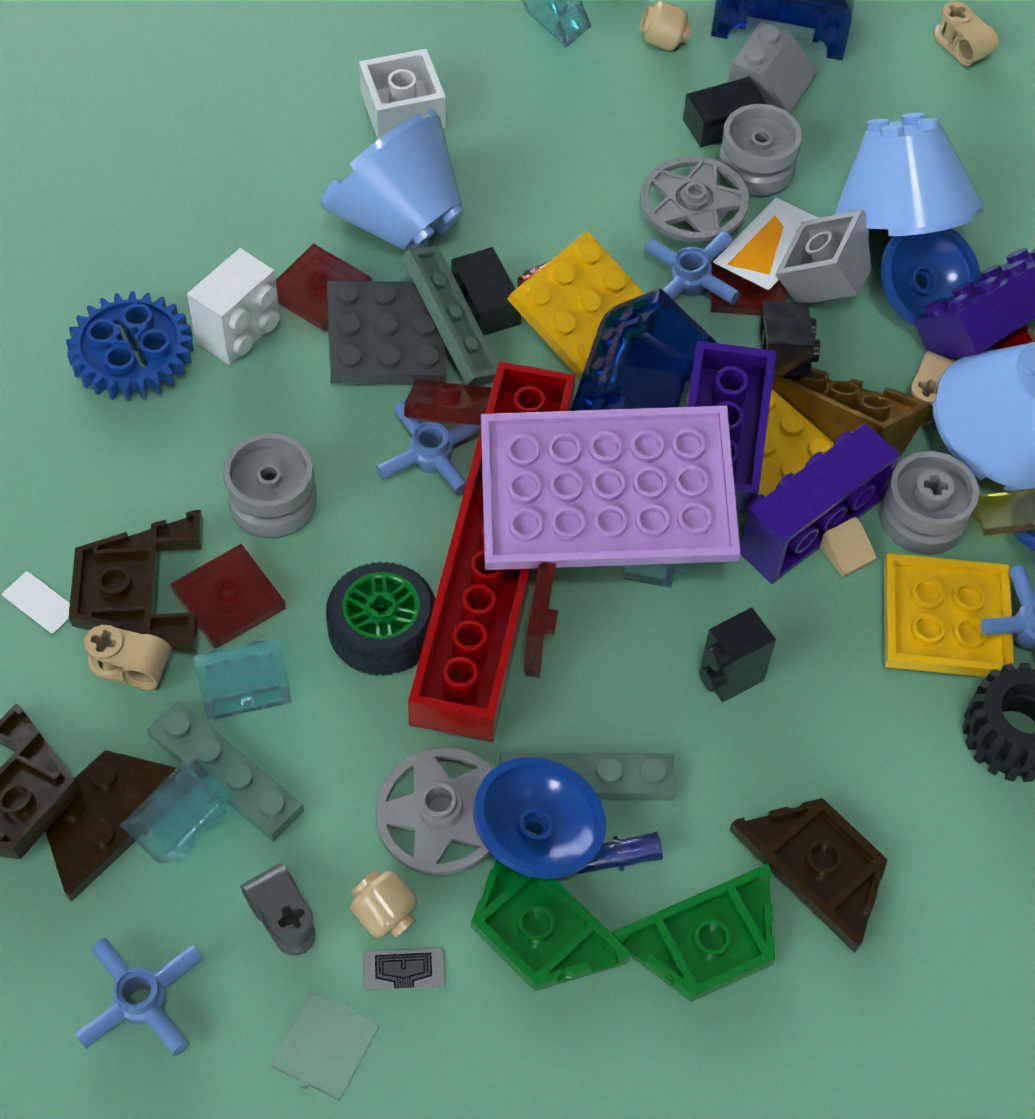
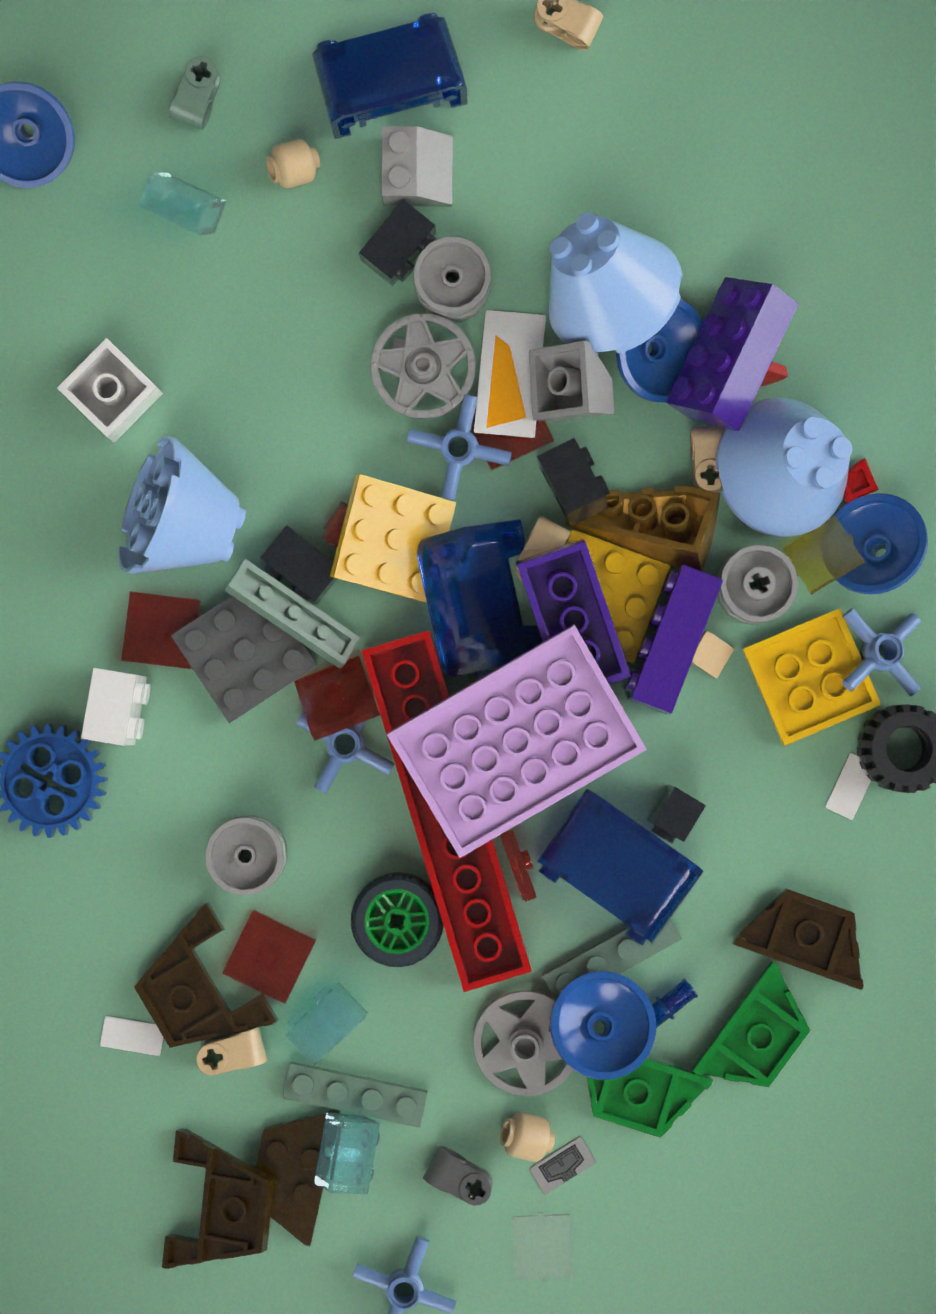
camera: 20 degrees left, 30 degrees up
(655, 673) = (619, 866): none -> clear blue windscreen
(939, 747) = (849, 788): none -> white sticker

